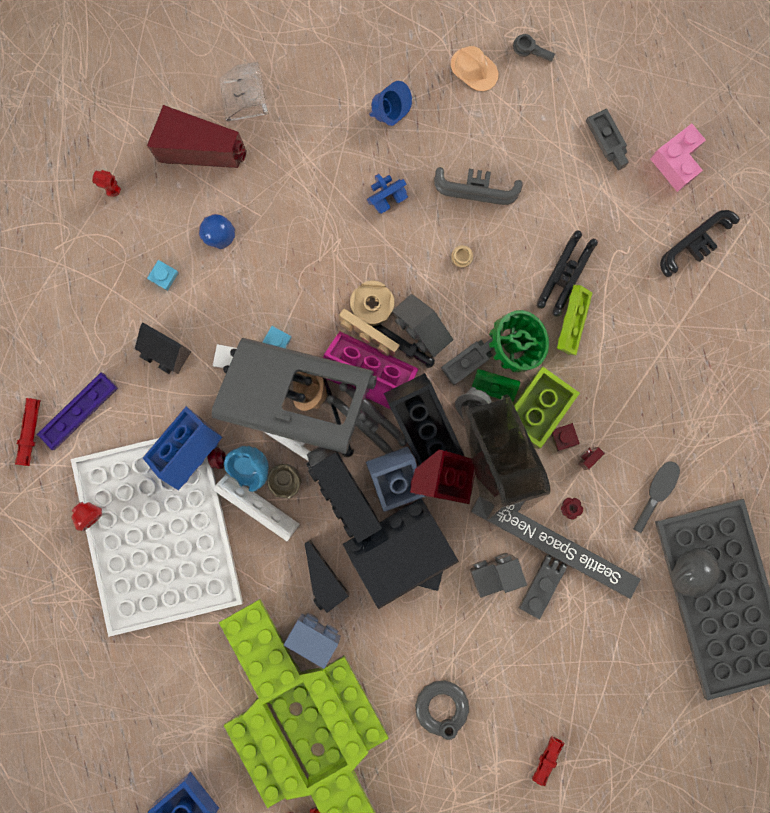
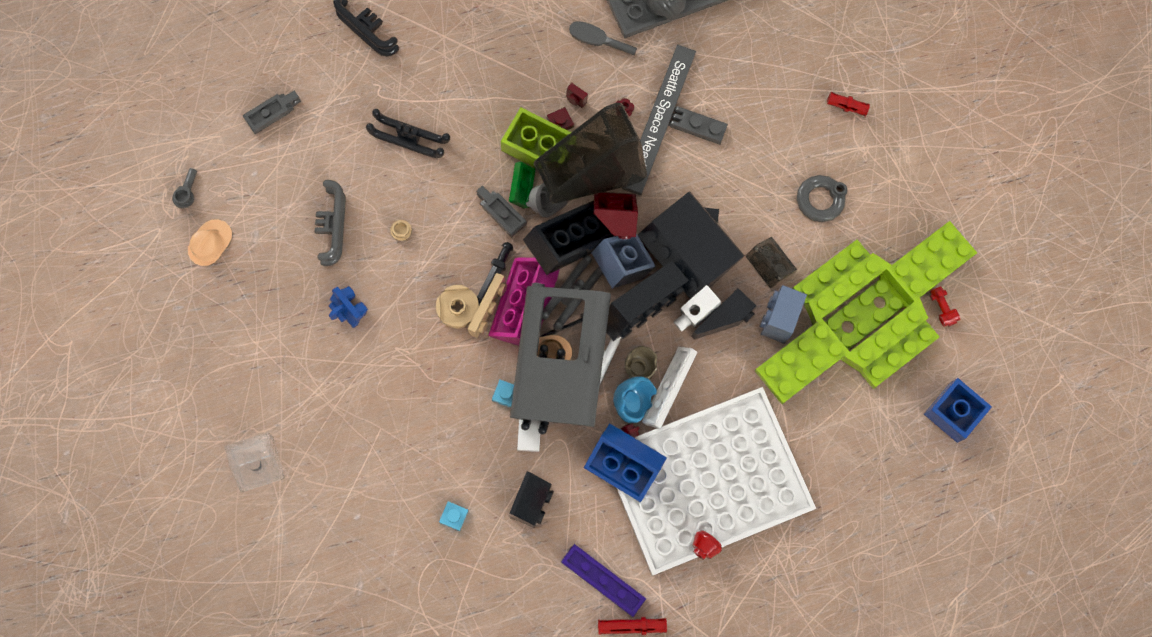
camera: 105 degrees left, 10 degrees down
(106, 181) = (366, 582): red bar -> none
(194, 141) = (312, 499): dark red slope -> none
(216, 231) = (402, 468): blue hair -> none
(335, 558) = (705, 302): none -> white torso
(376, 638) = (770, 262): none -> clear smoke bracket
(392, 103) = (255, 314): blue piece -> none
(422, 324) = (473, 254): dark grey brick -> none
(498, 575) = (694, 161): dark grey brick -> none
(530, 338) = (477, 159): green gear -> none
(574, 320) = (450, 123): lime plate -> none
(675, 157) = (288, 50): bright pink brick -> none

